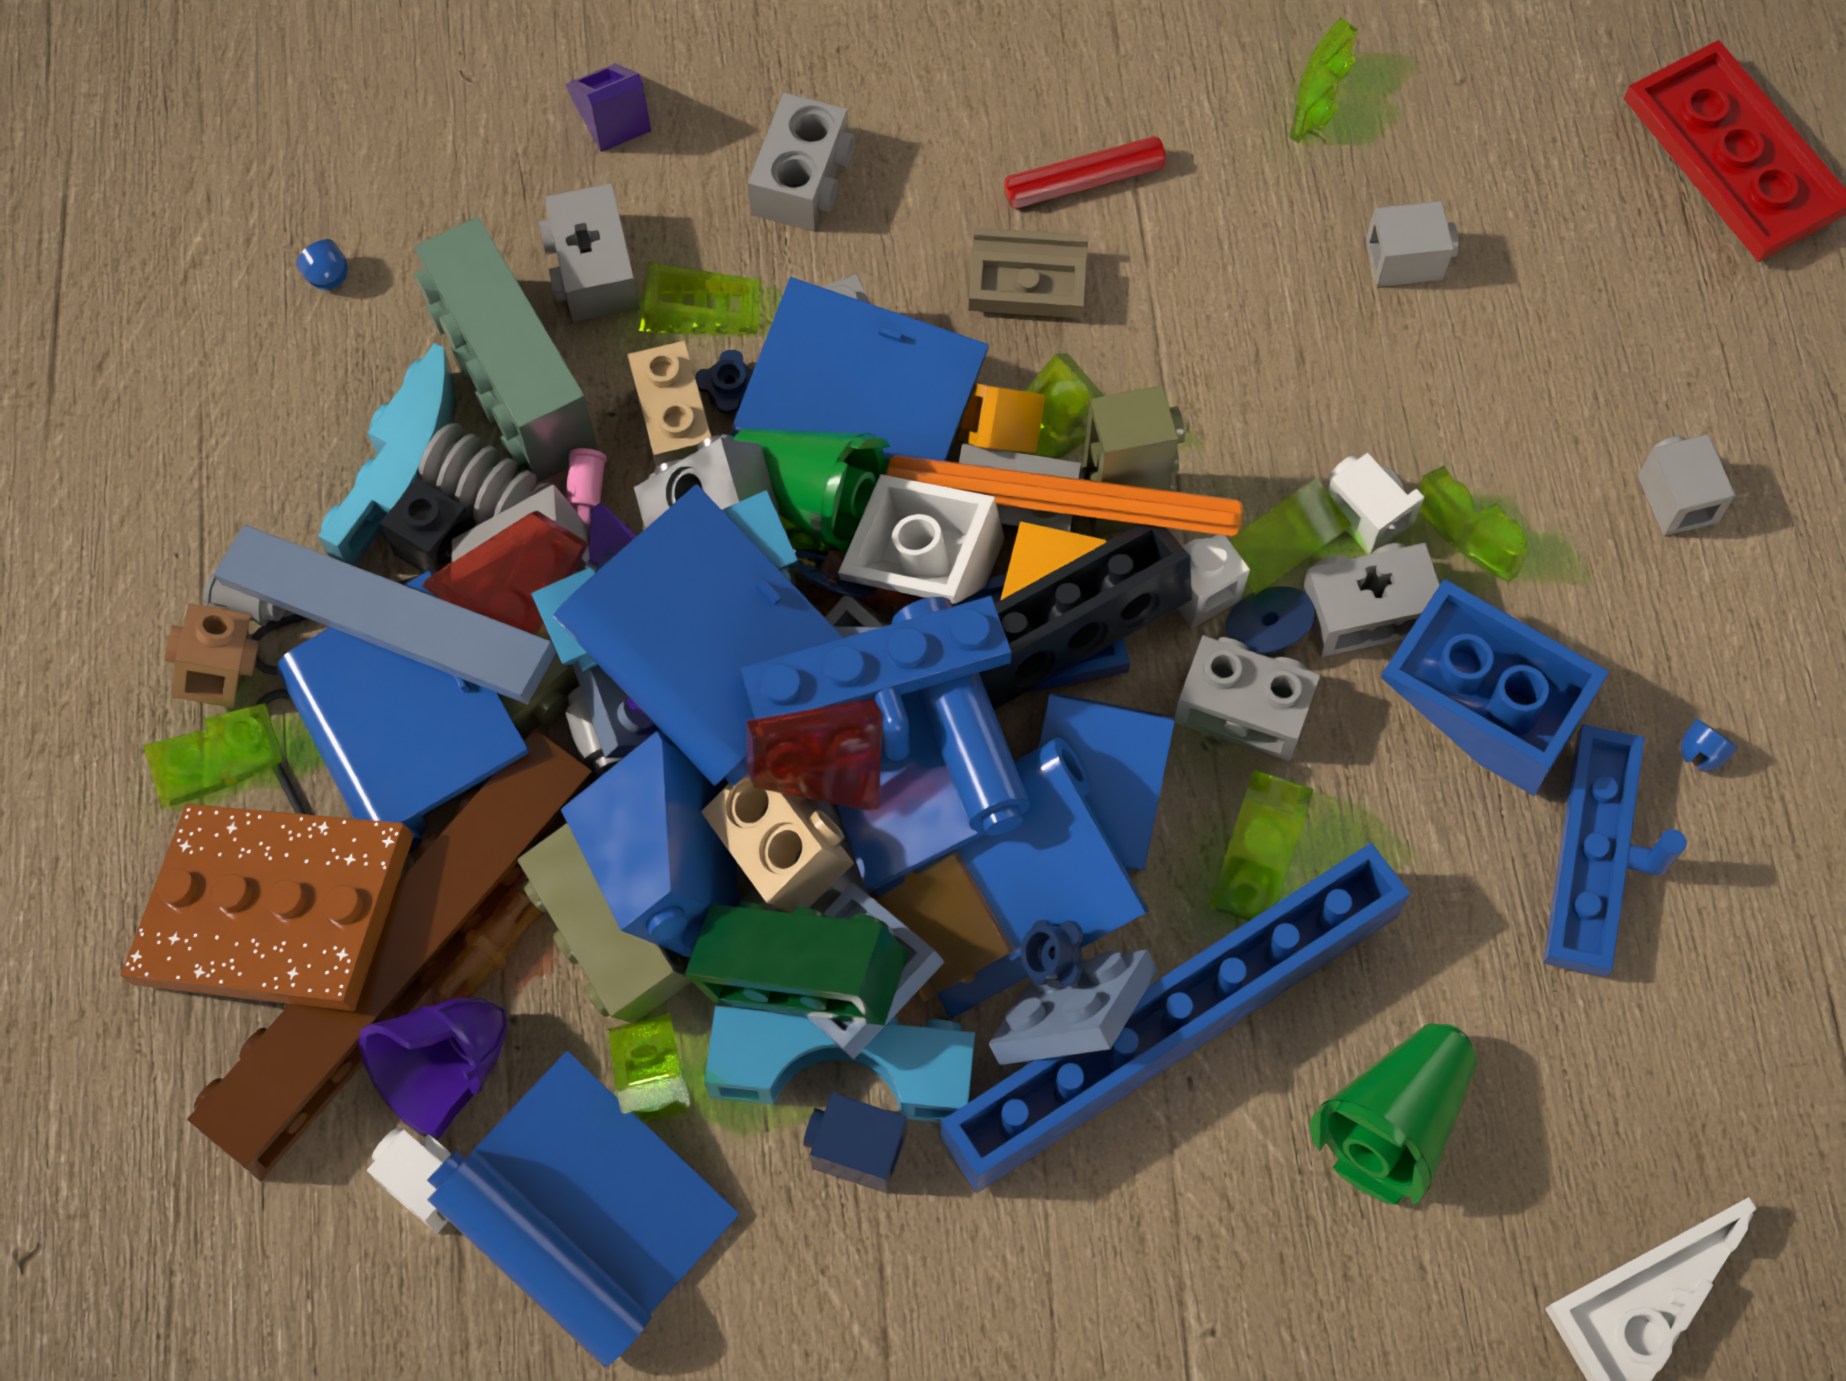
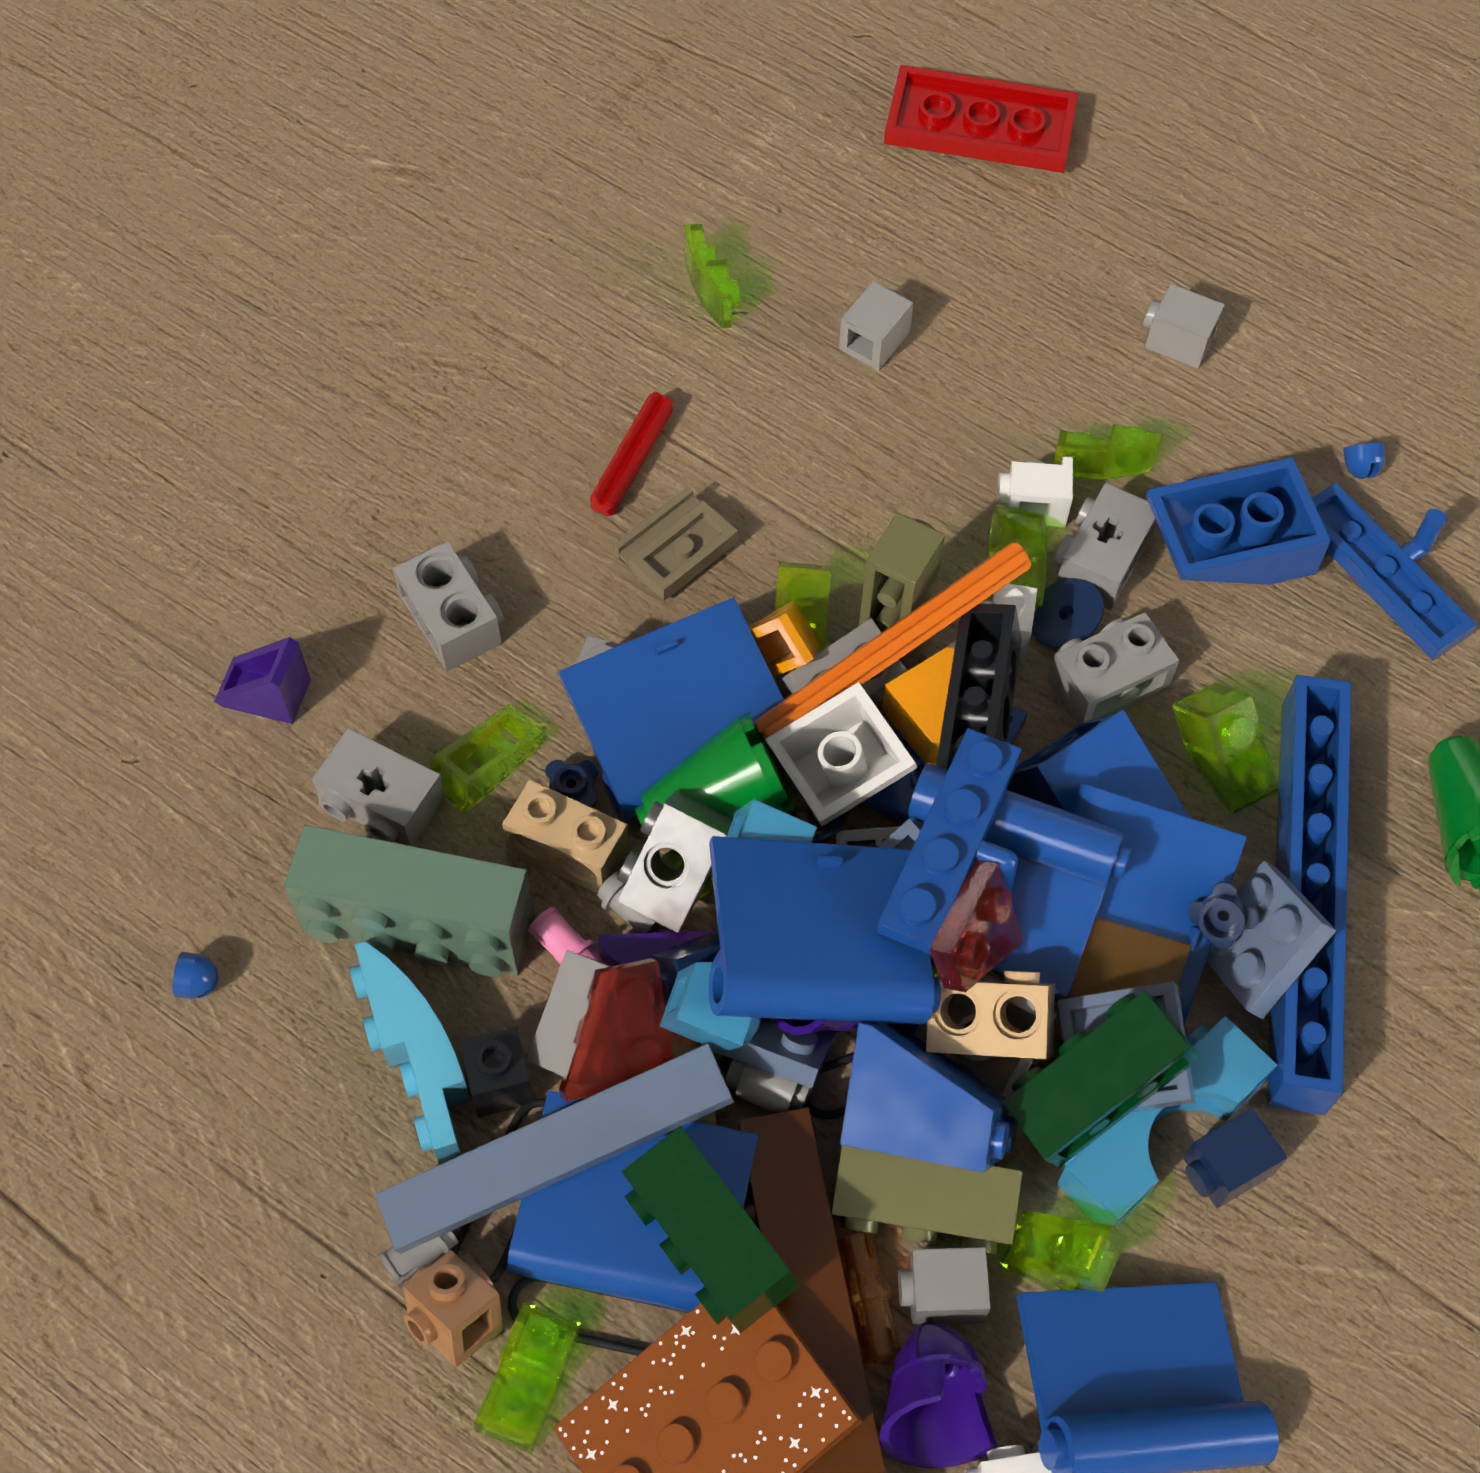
camera: 50 degrees left, 5 degrees down
(399, 769) = (708, 1231): none -> dark green brick
(473, 475) = (496, 1005): light grey piece -> none
(542, 998) = (946, 1286): none -> light grey brick

